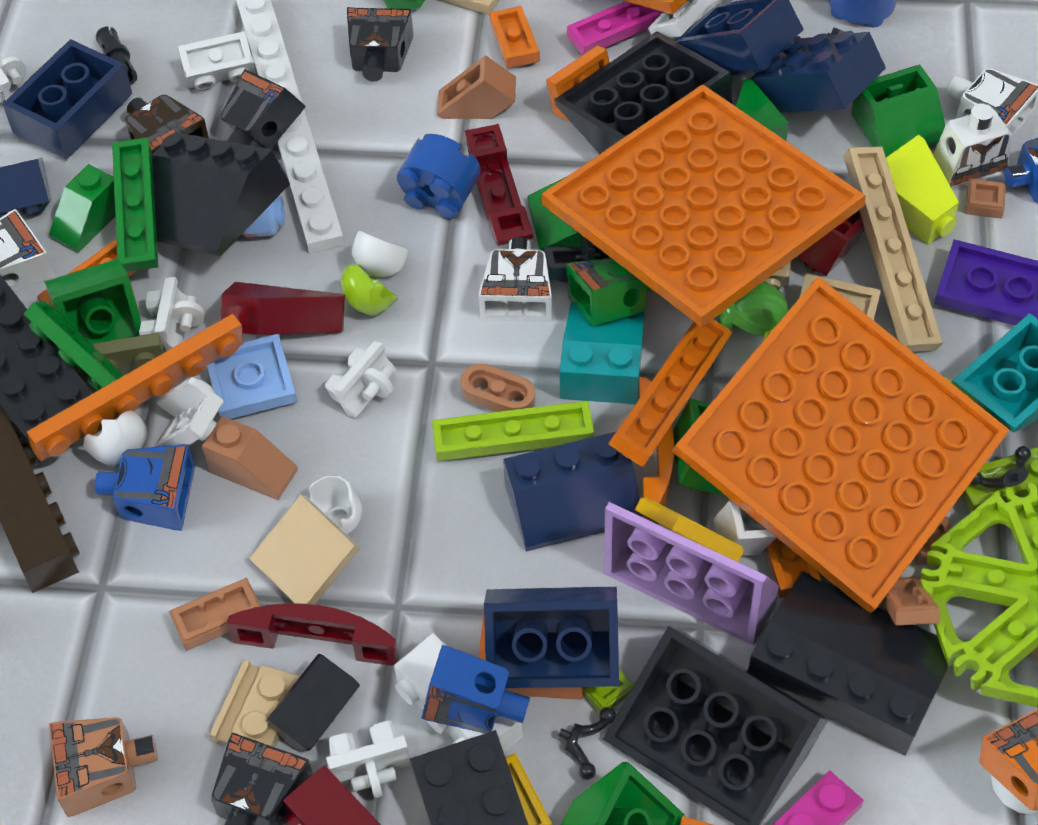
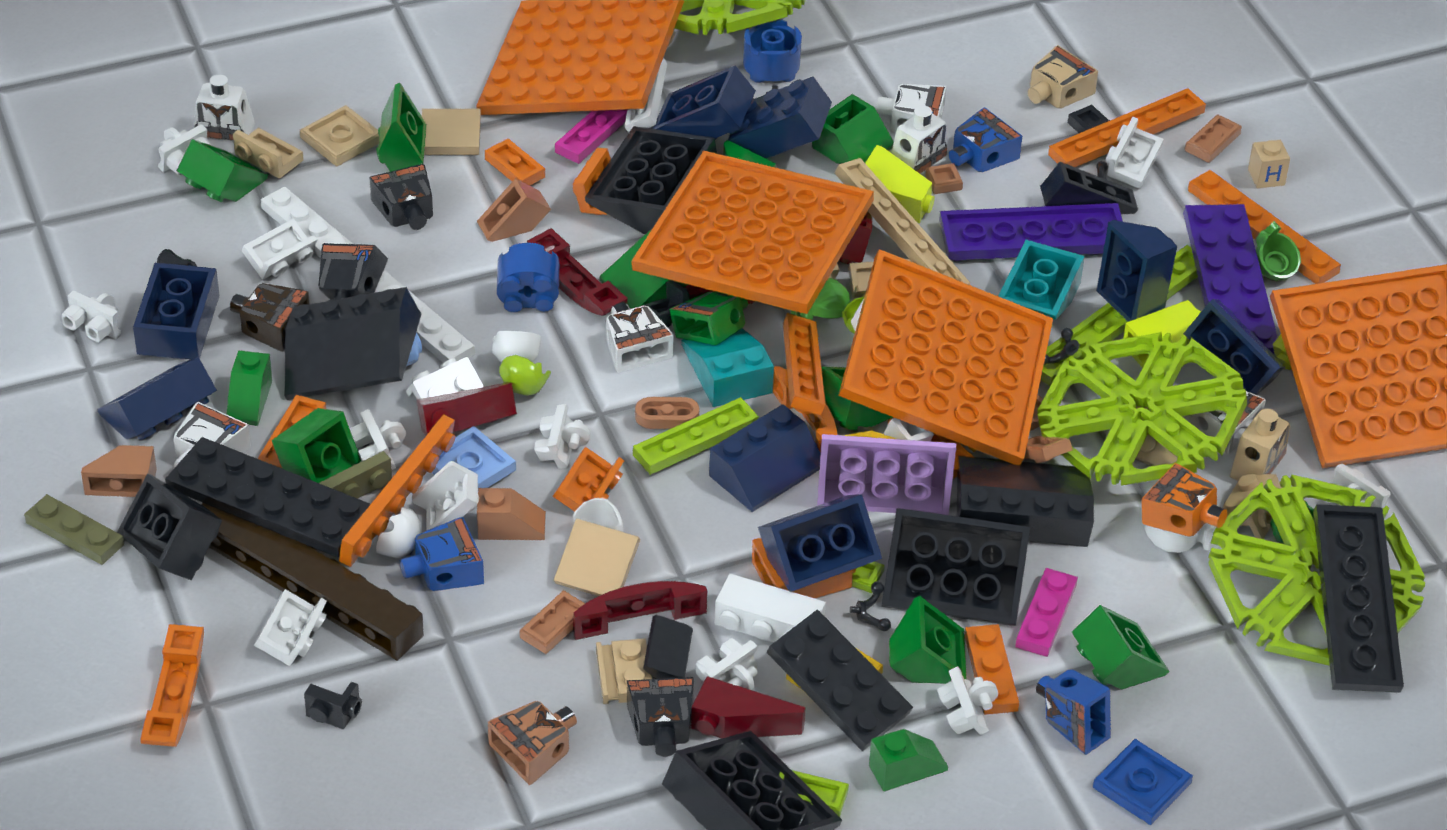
camera: 30 degrees left, 10 degrees down
(72, 345) = (331, 475): green plate -> none
(135, 204) = (299, 365): green plate -> none
(292, 270) = (451, 378): none -> white bracket
(358, 446) = (588, 479): none -> orange bracket
(470, 693) = (787, 590): blue torso -> none

